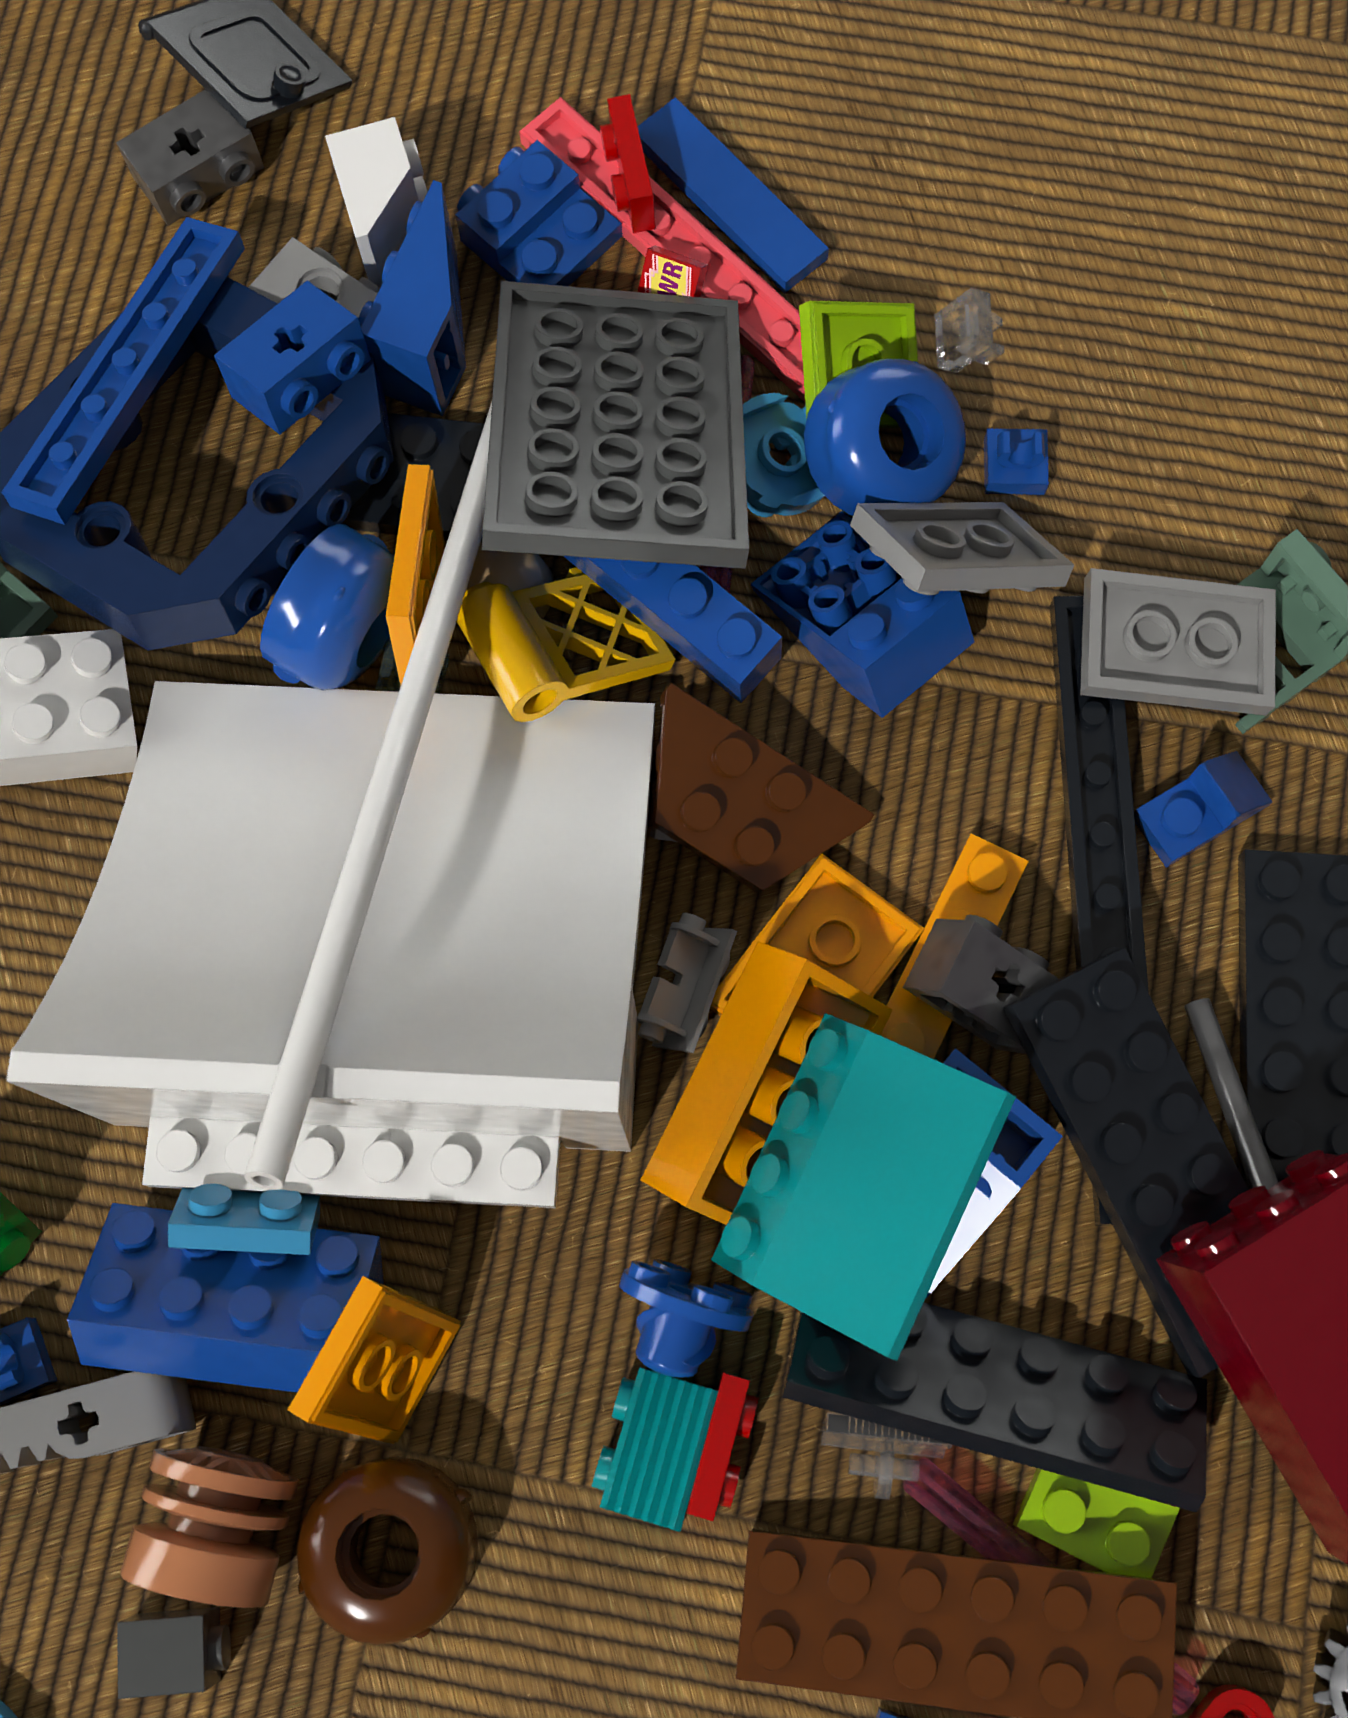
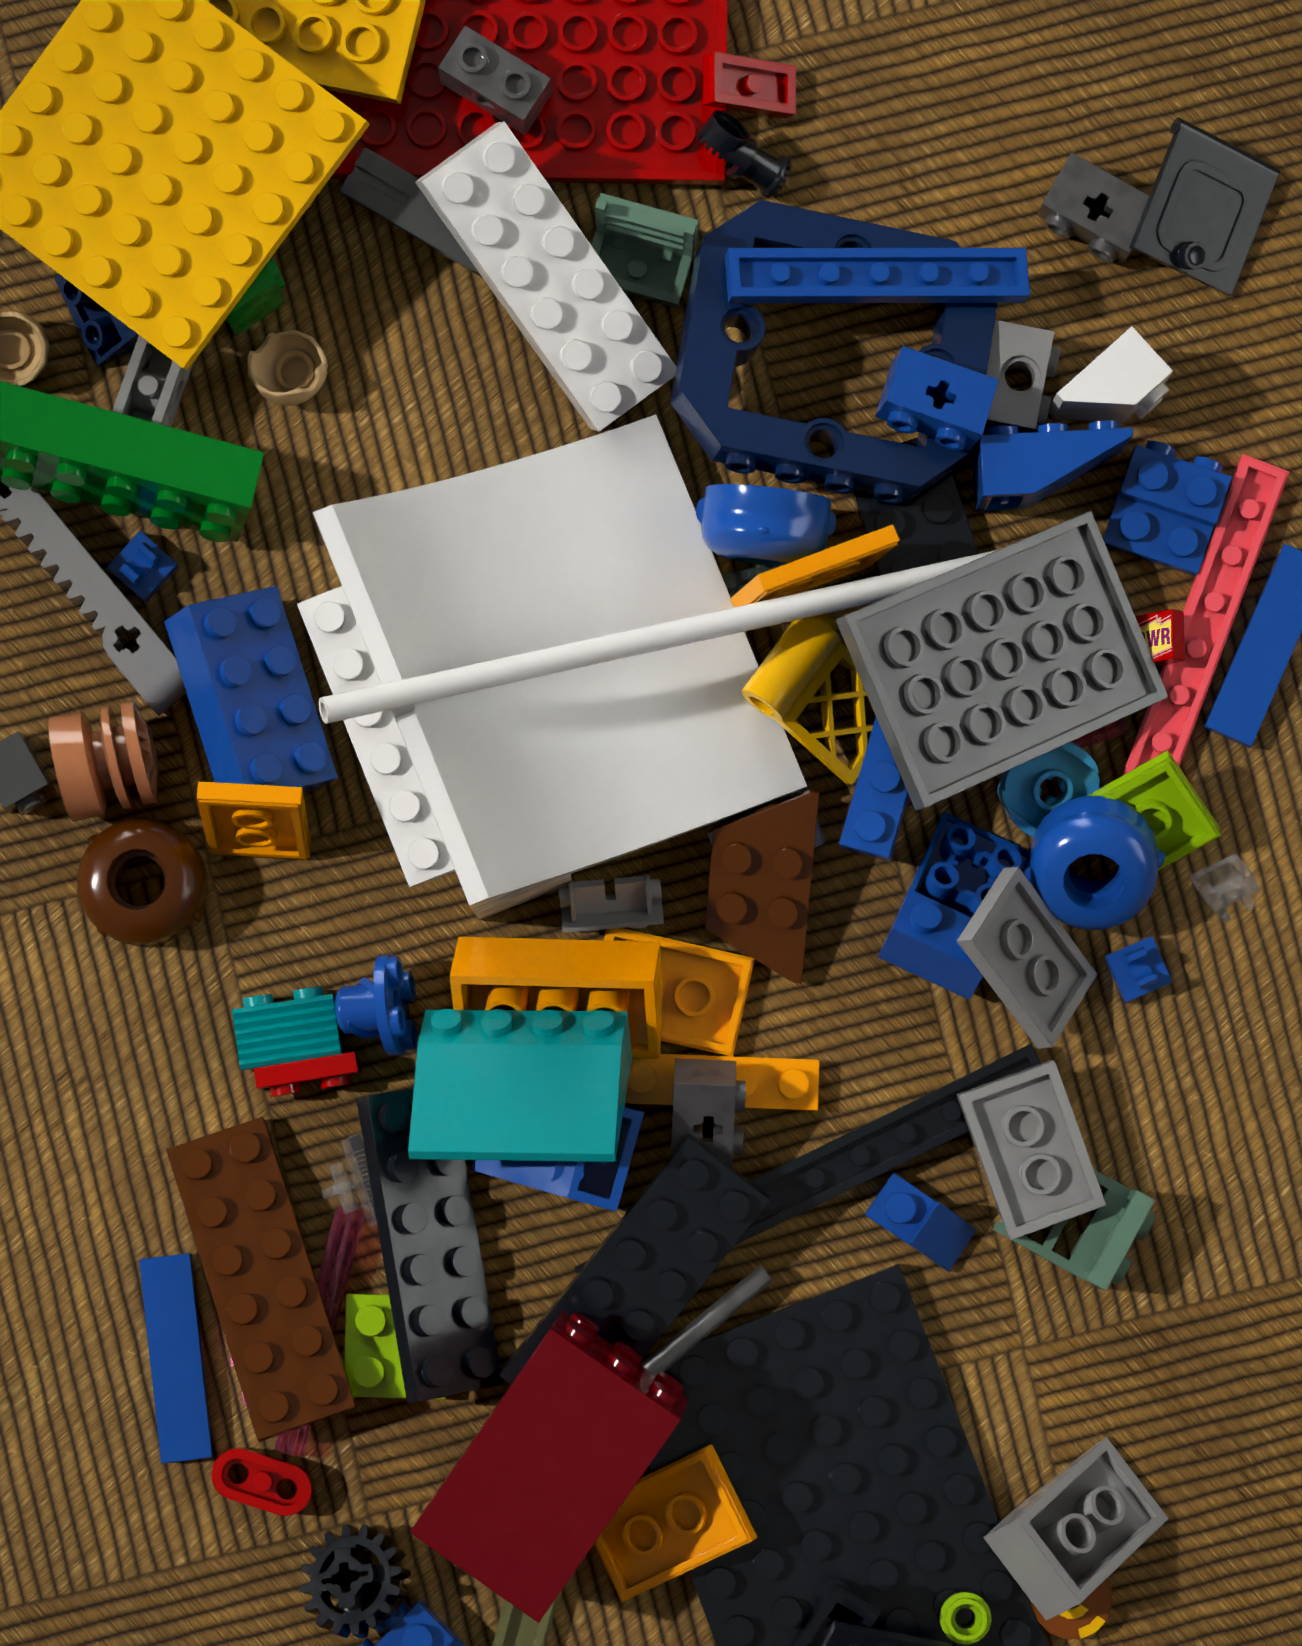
camera: 60 degrees right, 10 degrees up
(244, 1220) = (302, 681): dark azure plate -> none
(623, 143) = (1257, 546): red plate -> none

